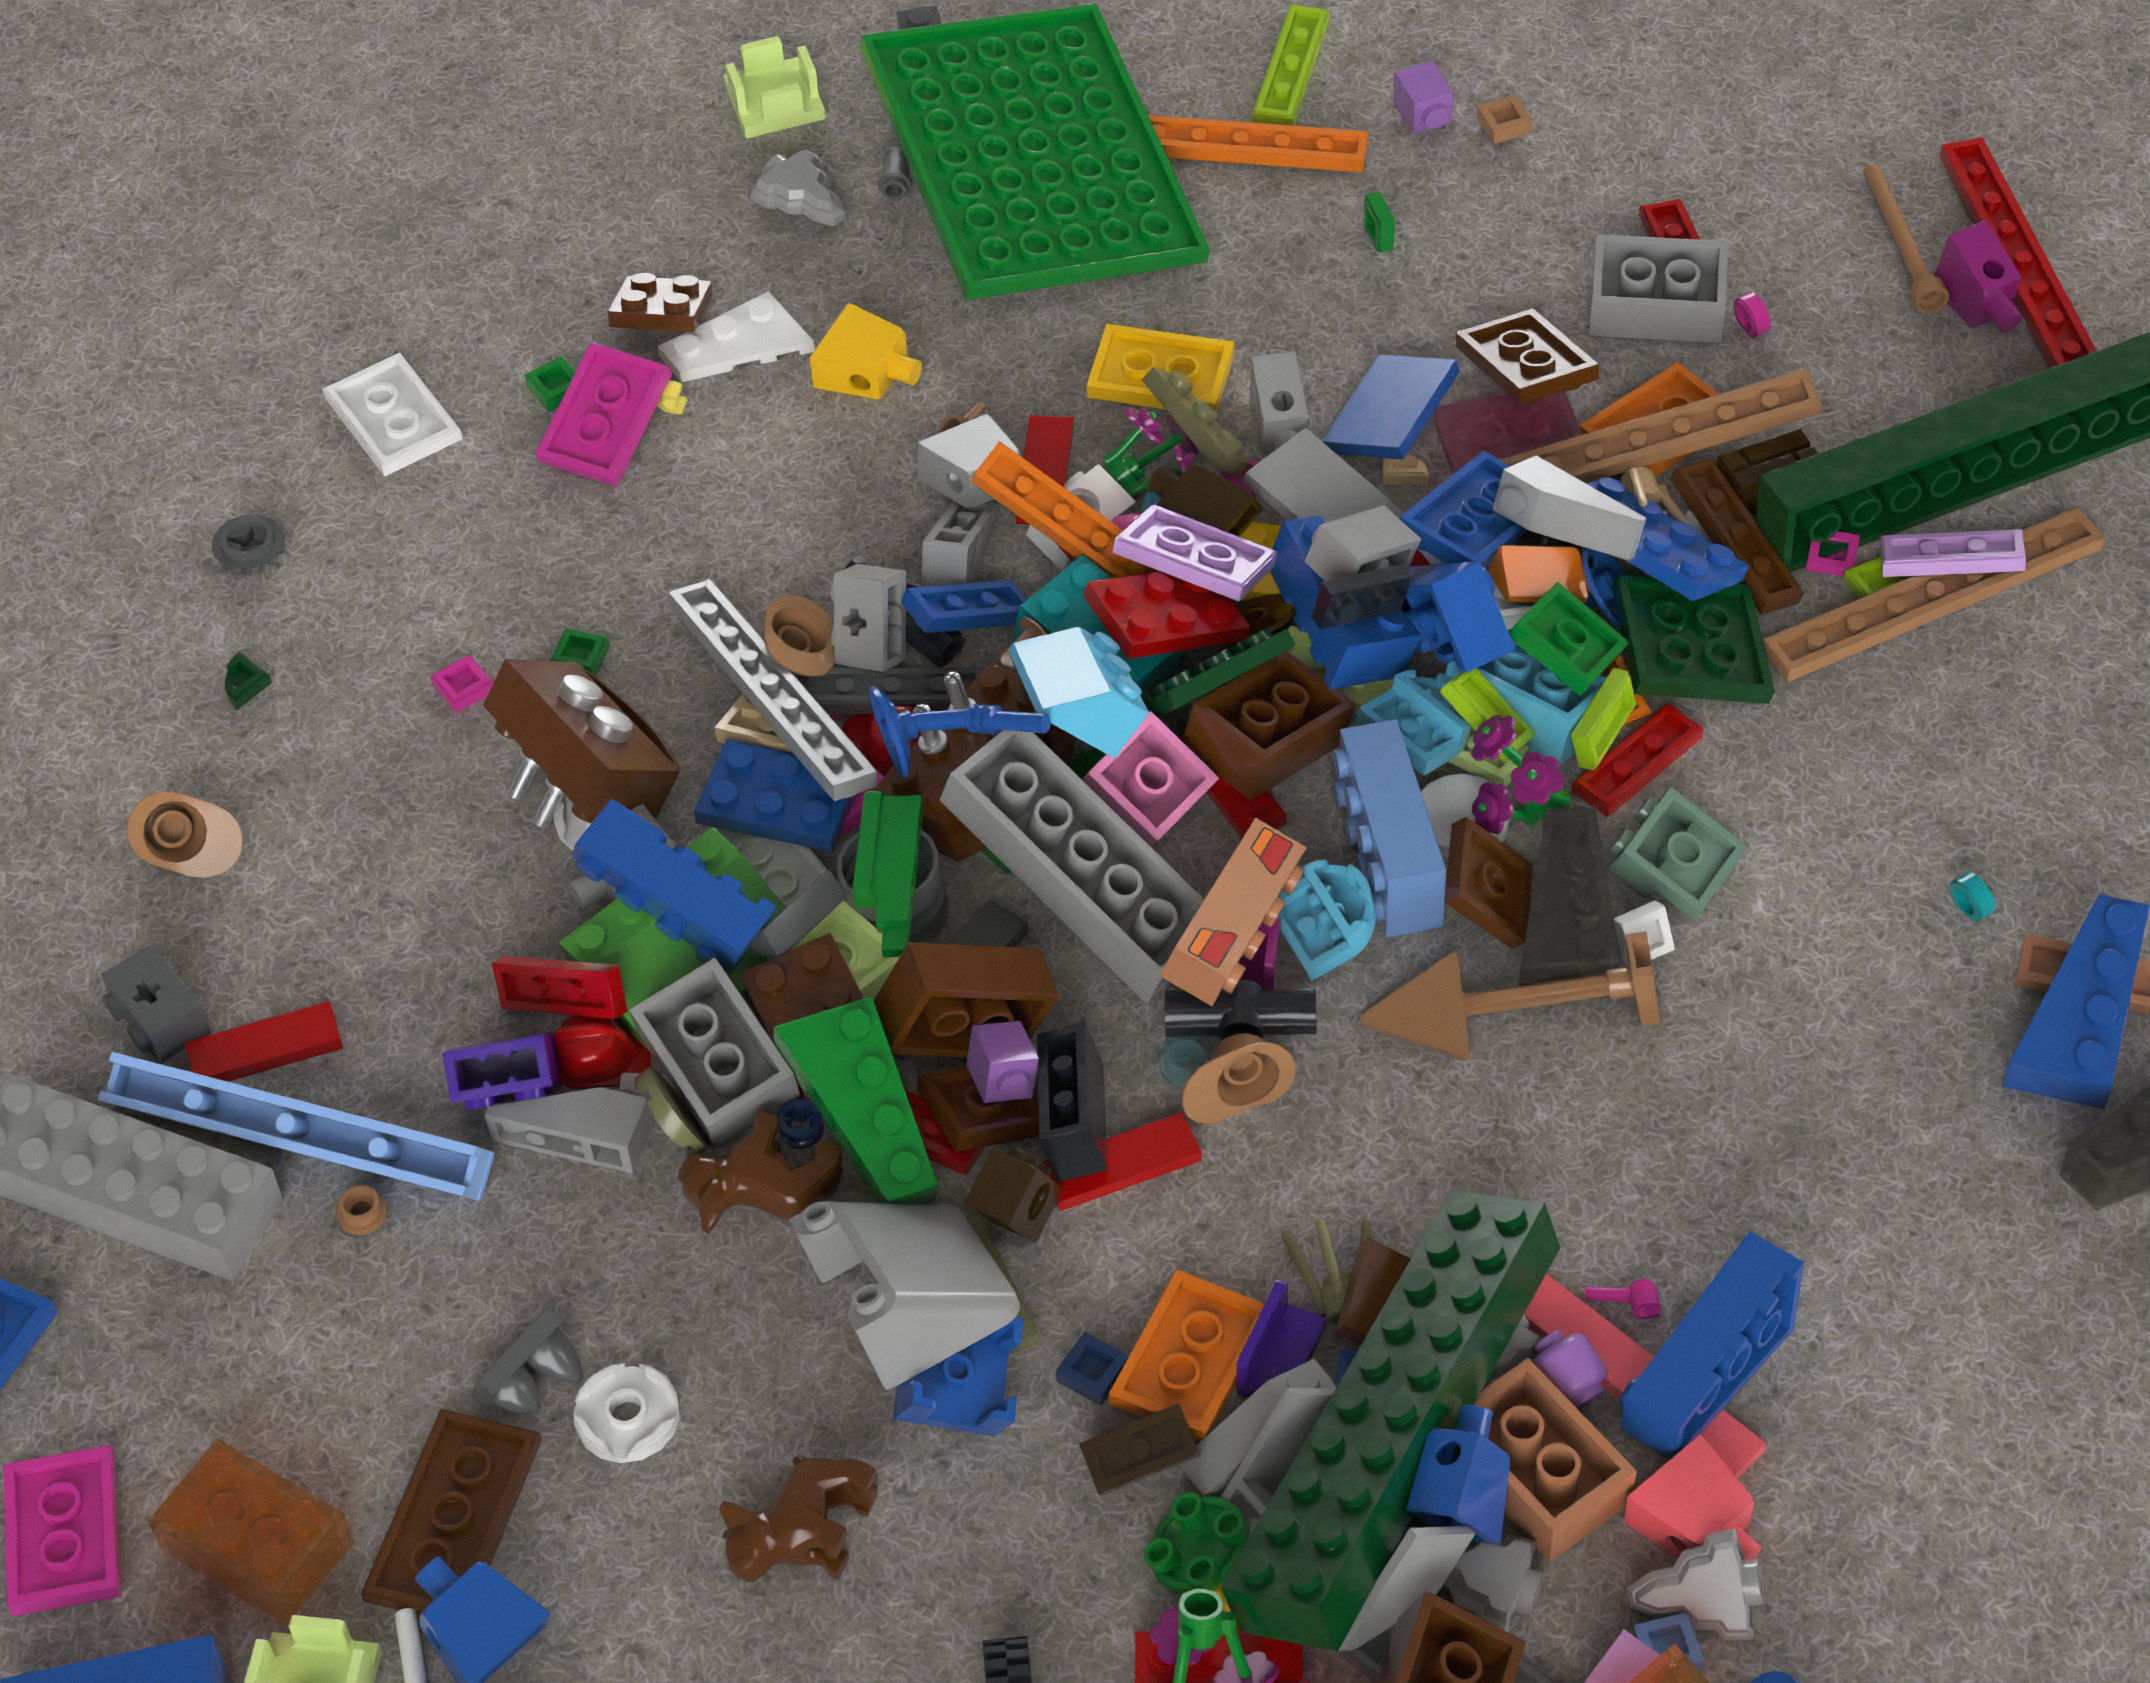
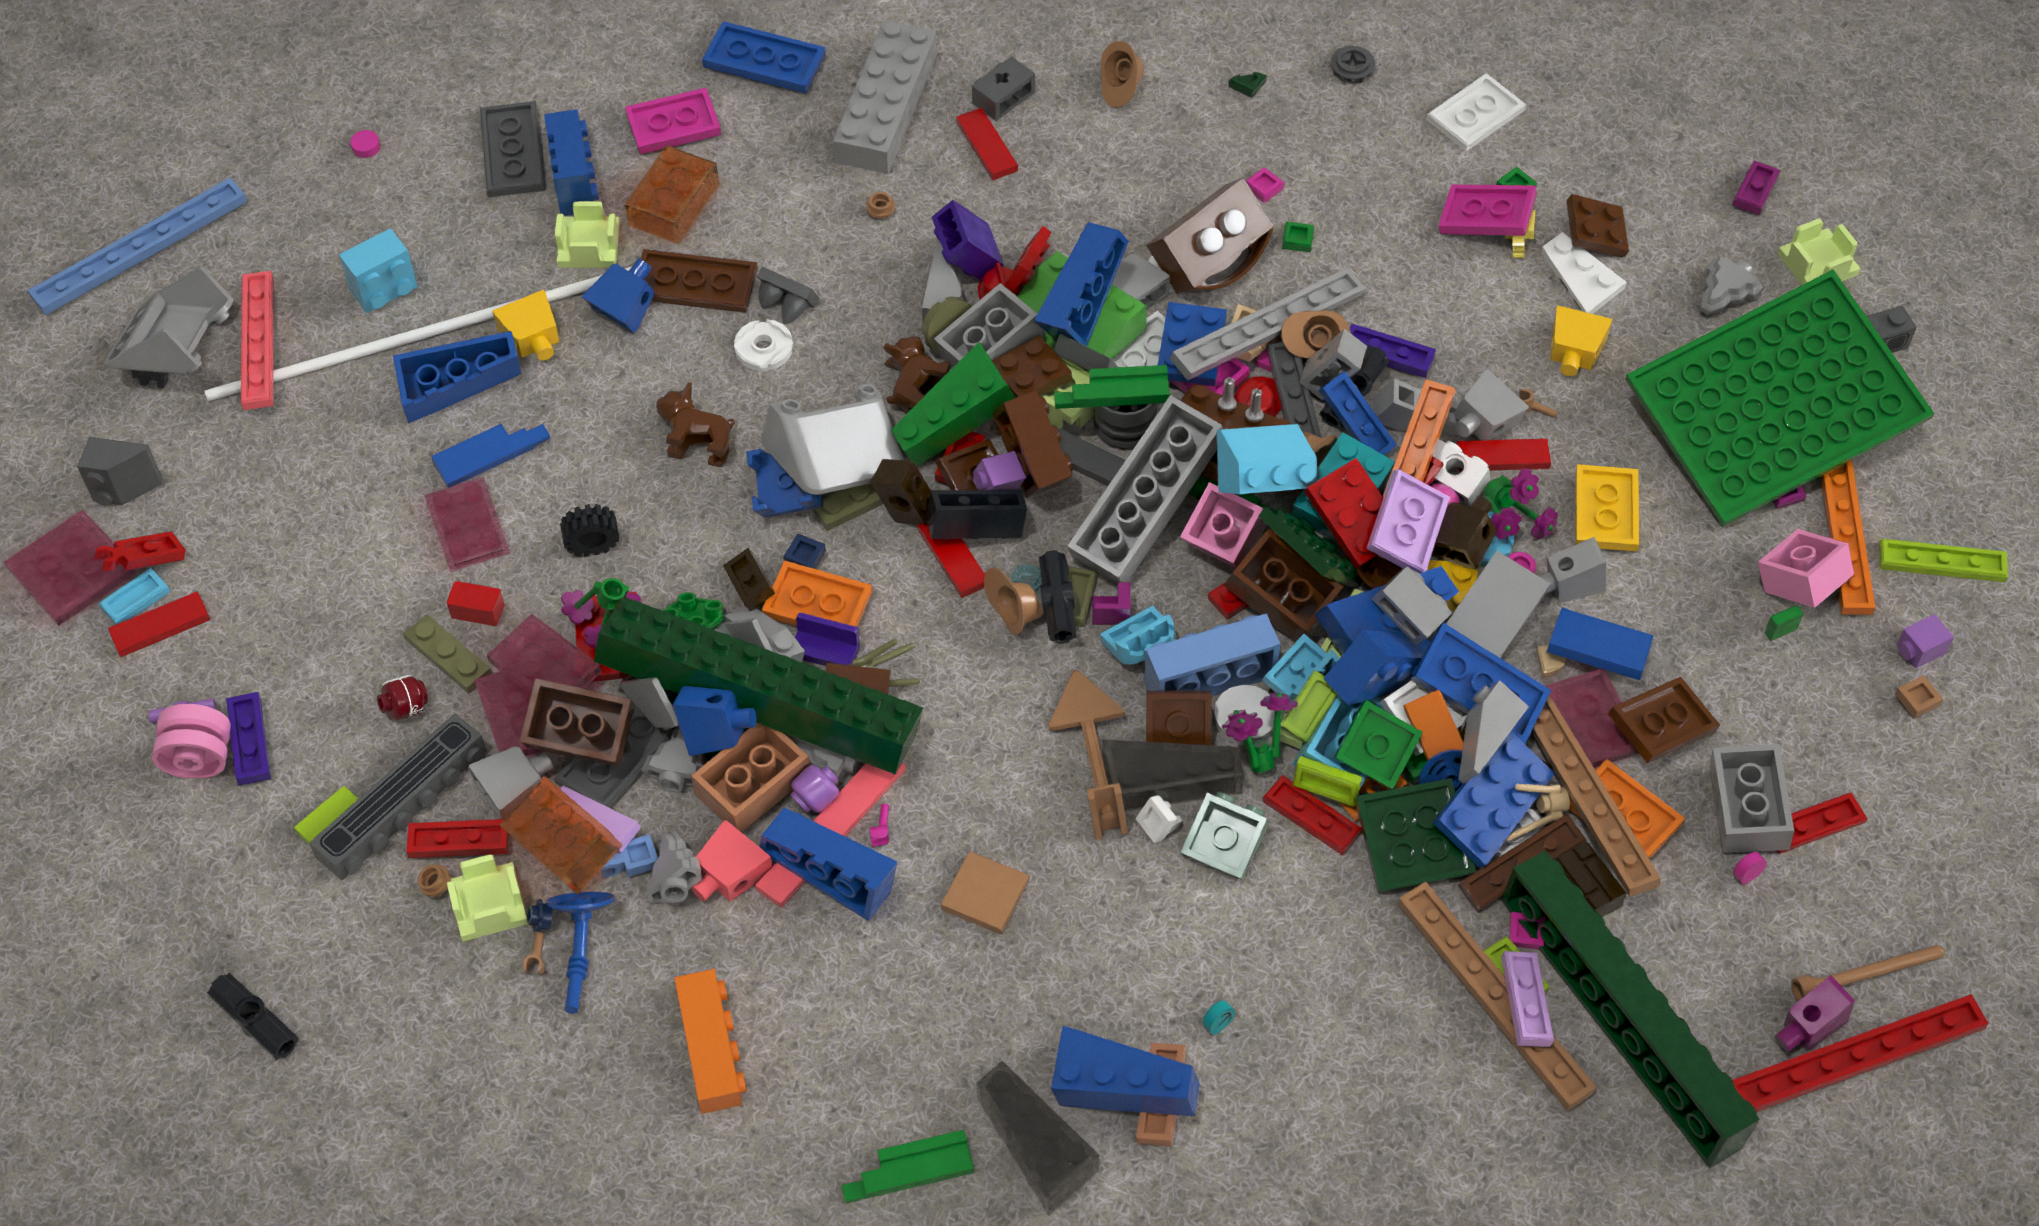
camera: 80 degrees right, 5 degrees up
(298, 1127) = (925, 165): light blue tile -> none
(631, 133) = (1756, 187): none -> magenta plate
(849, 539) = (1402, 354): none -> dark purple plate
(984, 719) = (1210, 375): blue dish -> none
(1197, 420) = (1547, 523): olive plate -> none
(1233, 911) = (1114, 573): nougat brick -> none
(1309, 175) = (1806, 568): none -> bright pink brick
(1361, 596) = (1364, 604): black plate -> none
(1751, 1168) = (985, 892): none -> medium nougat tile
(2018, 1553) = (708, 1041): none -> orange brick

